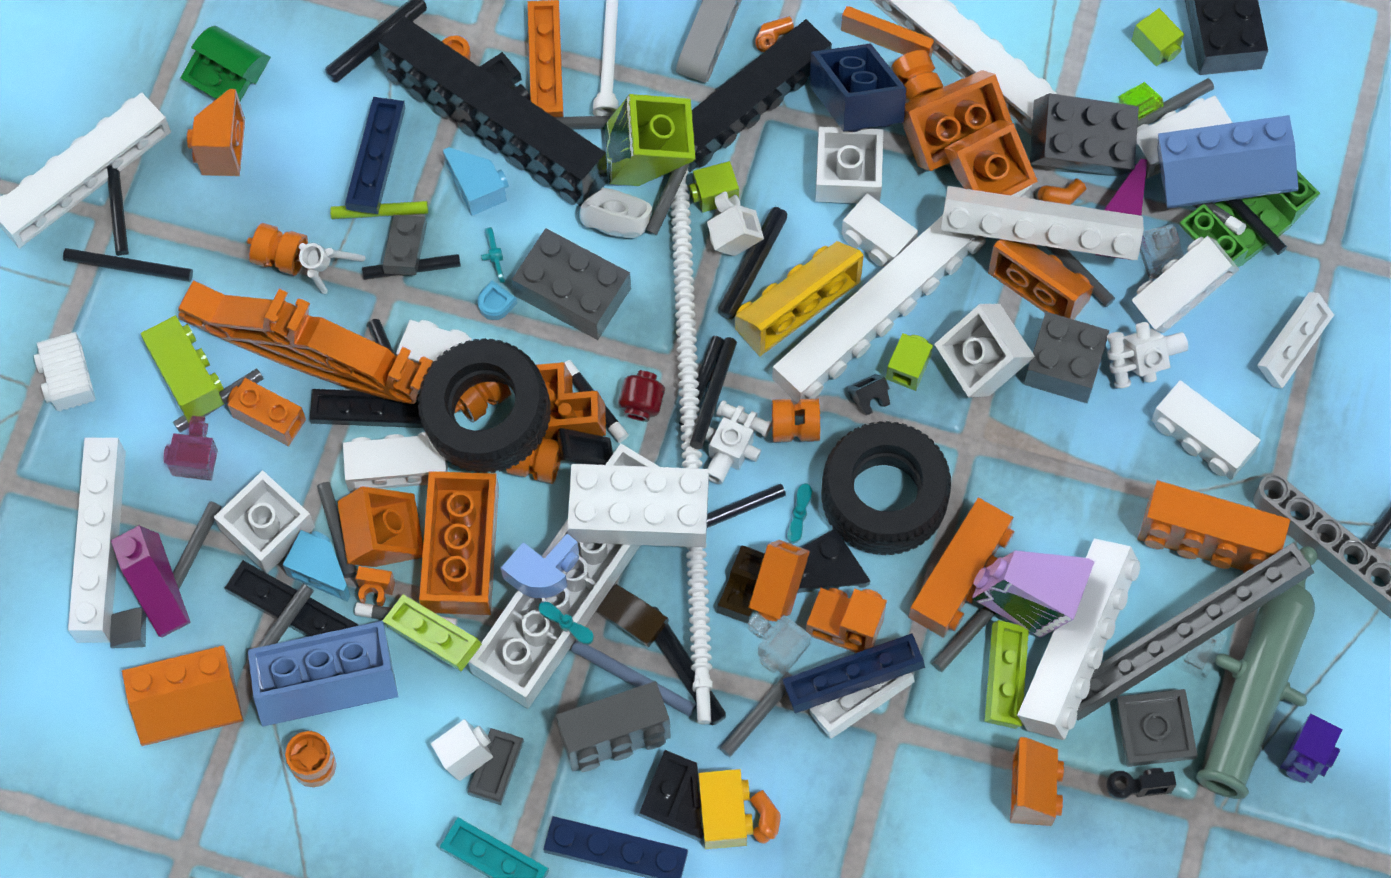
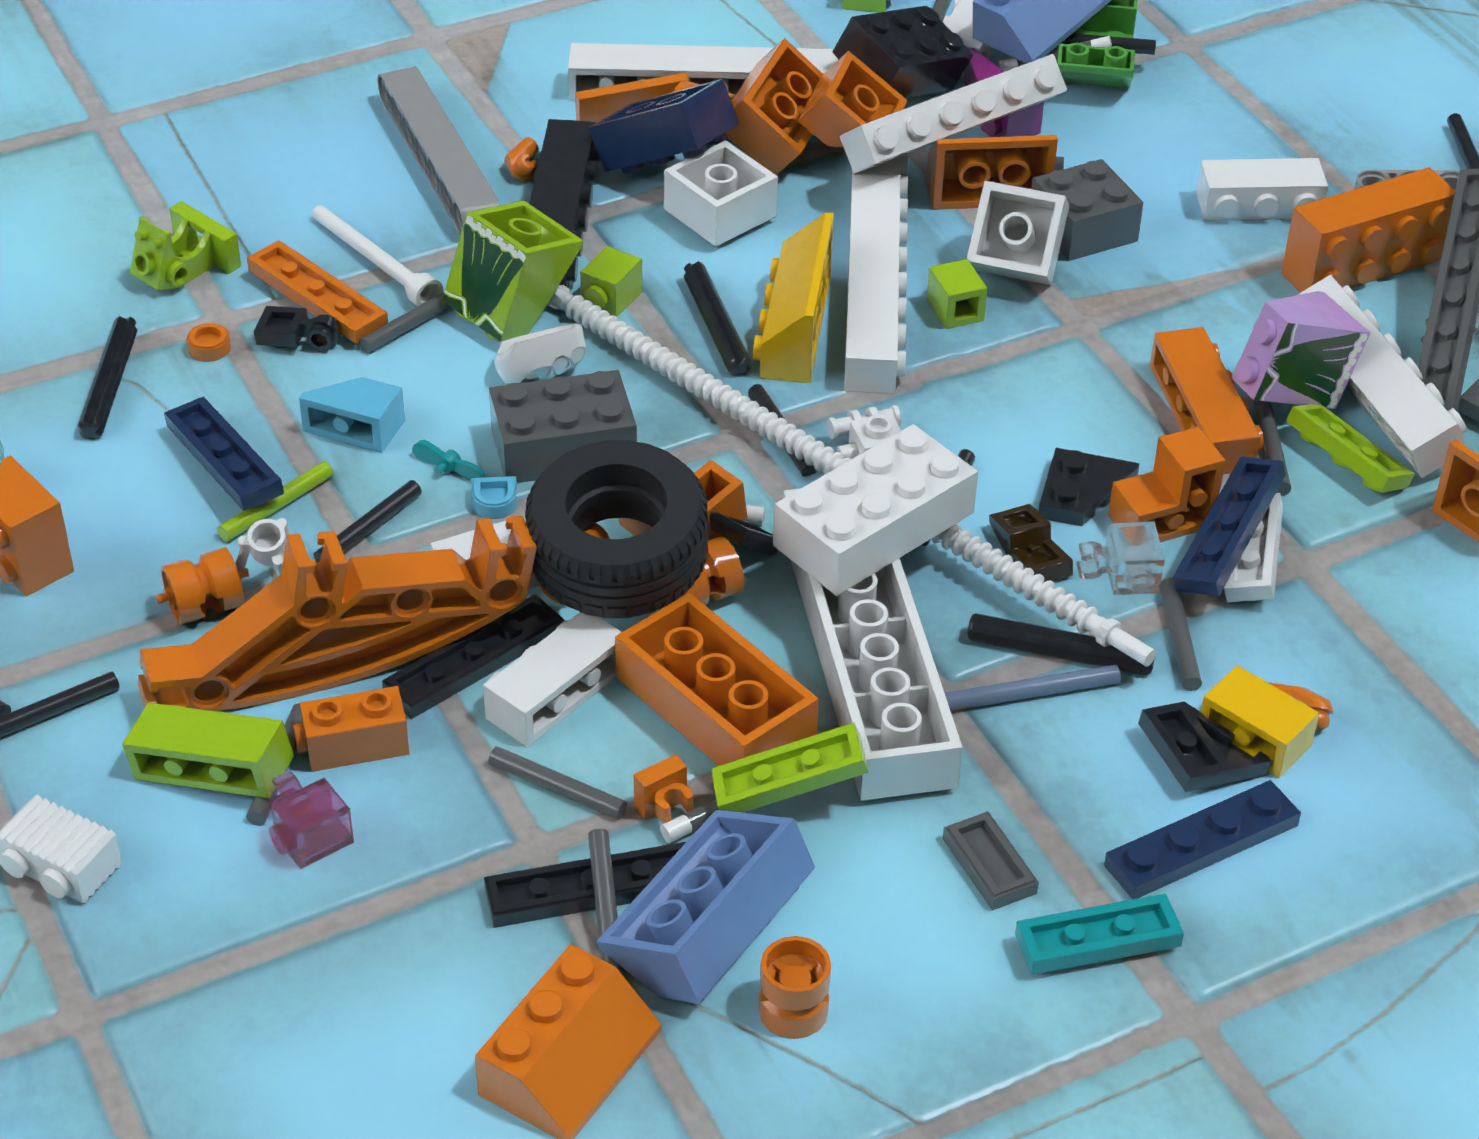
camera: 45 degrees left, 25 degrees down
(96, 526) = (288, 975): white brick -> none
(128, 629) = (421, 1035): dark grey slope -> none
(151, 578) = (398, 961): magenta slope -> none
(195, 542) = (407, 913): dark grey bar -> none
(264, 521) = (474, 814): white brick -> none
(316, 564) = (572, 807): medium azure slope -> none
(380, 527) = (602, 741): orange slope -> none
(404, 245) = (342, 504): dark grey plate -> none
(463, 749) = (946, 856): white brick -> none
(493, 112) = (315, 340): black brick -> none
(541, 576) = (844, 628): light blue brick -> none
(566, 623) = (925, 653): teal piece -> none
(614, 727) = (1075, 719): dark grey brick -> none
(632, 615) = (968, 629): dark brown slope -> none
(641, 396) = (749, 461): dark red head -> none
(667, 198) = (575, 308): dark grey bar -> none
(713, 393) = (812, 418): black bar -> none
(735, 227) = (670, 293): white brick -> none
(778, 580) = (1068, 499): orange brick -> none
(784, 420) = (916, 388): orange wheel -> none
(799, 513) = (1006, 463): teal piece -> none
(867, 389) = (952, 336): black tile -> none
(877, 231) = (791, 213): white brick -> none
(892, 446) = (1103, 372): black tyre -> none
(1142, 353) = (1145, 166): white piece -> none
(1159, 248) = (1071, 108): clear brick -> none
(1184, 283) = (1116, 98): white brick -> none
(1295, 340) = (1243, 98): white plate -> none

